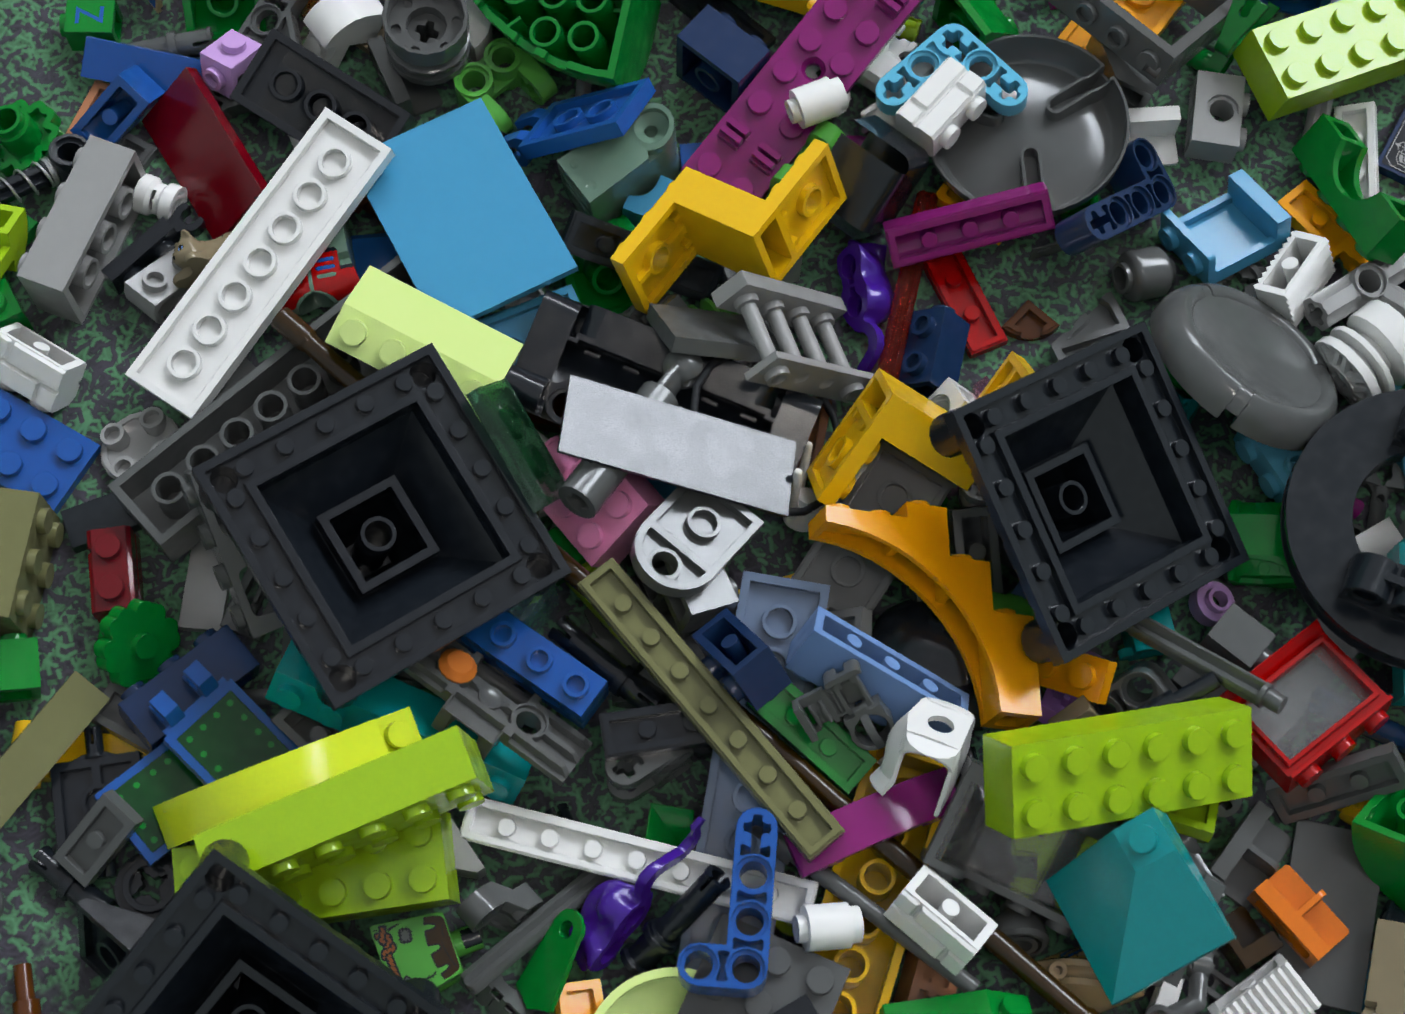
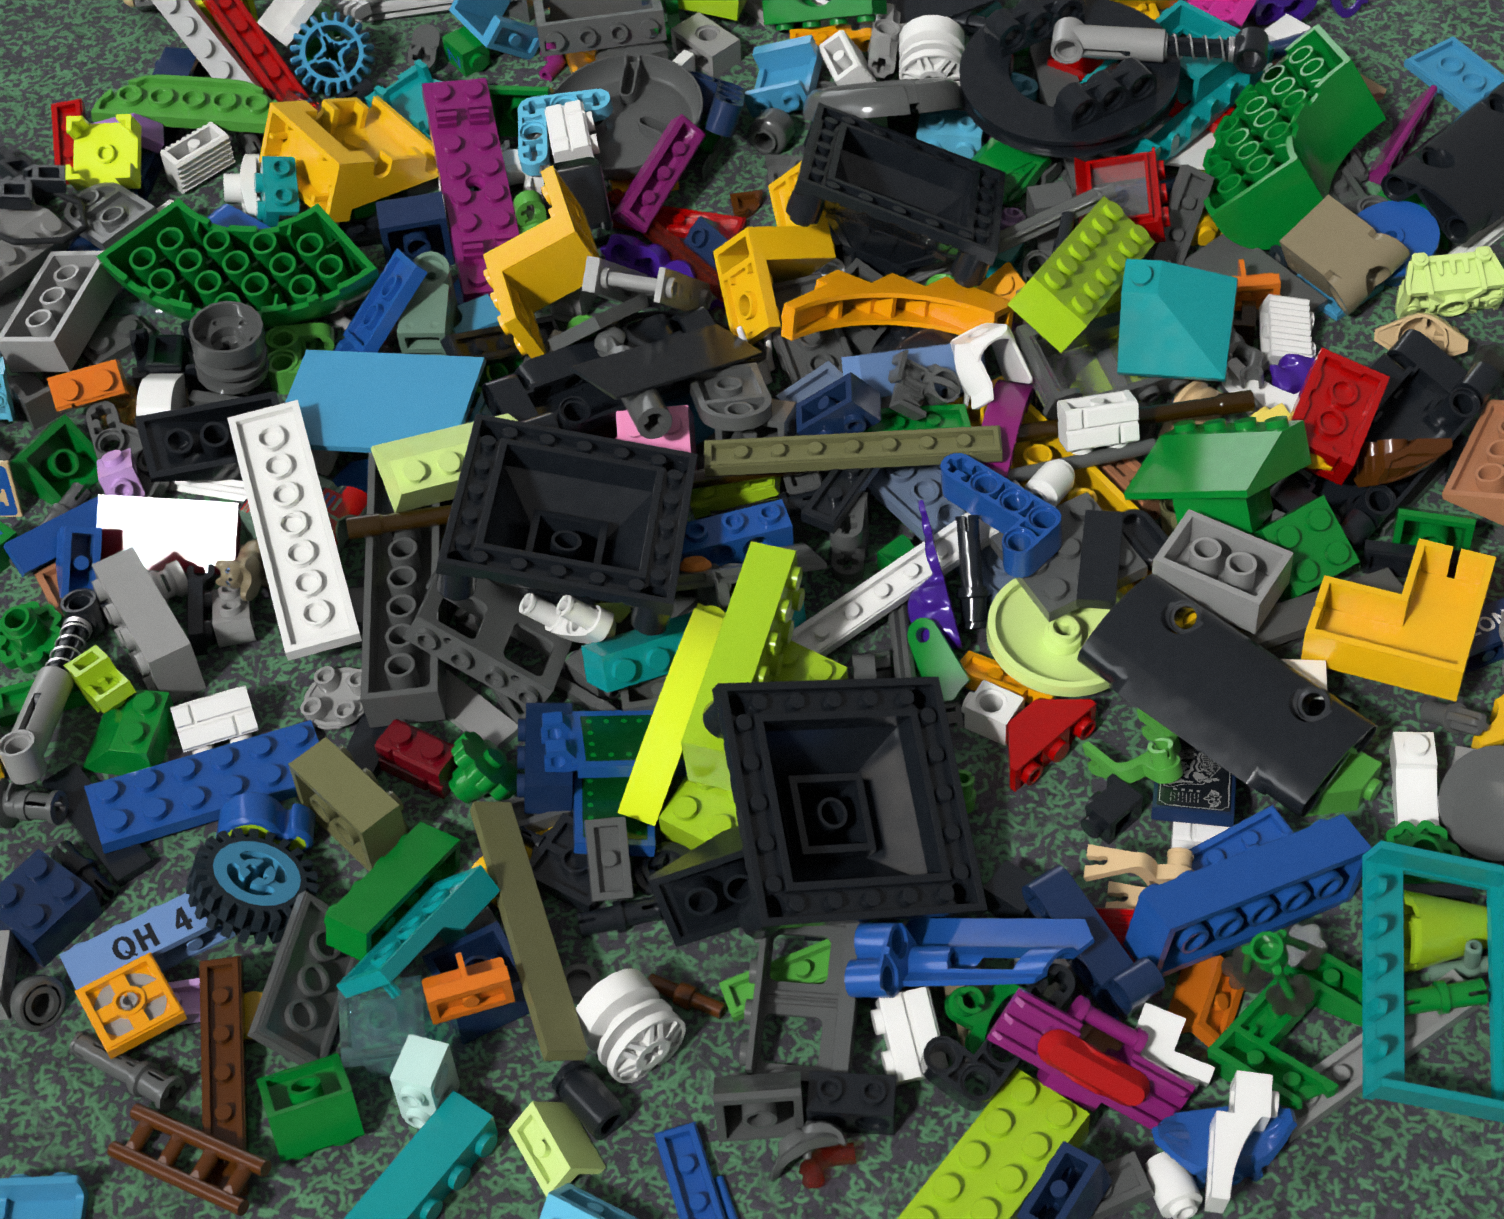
camera: 45 degrees left, 20 degrees down
(518, 443) = (570, 419): clear green tile -> none
(816, 102) = (502, 187): white brick -> none

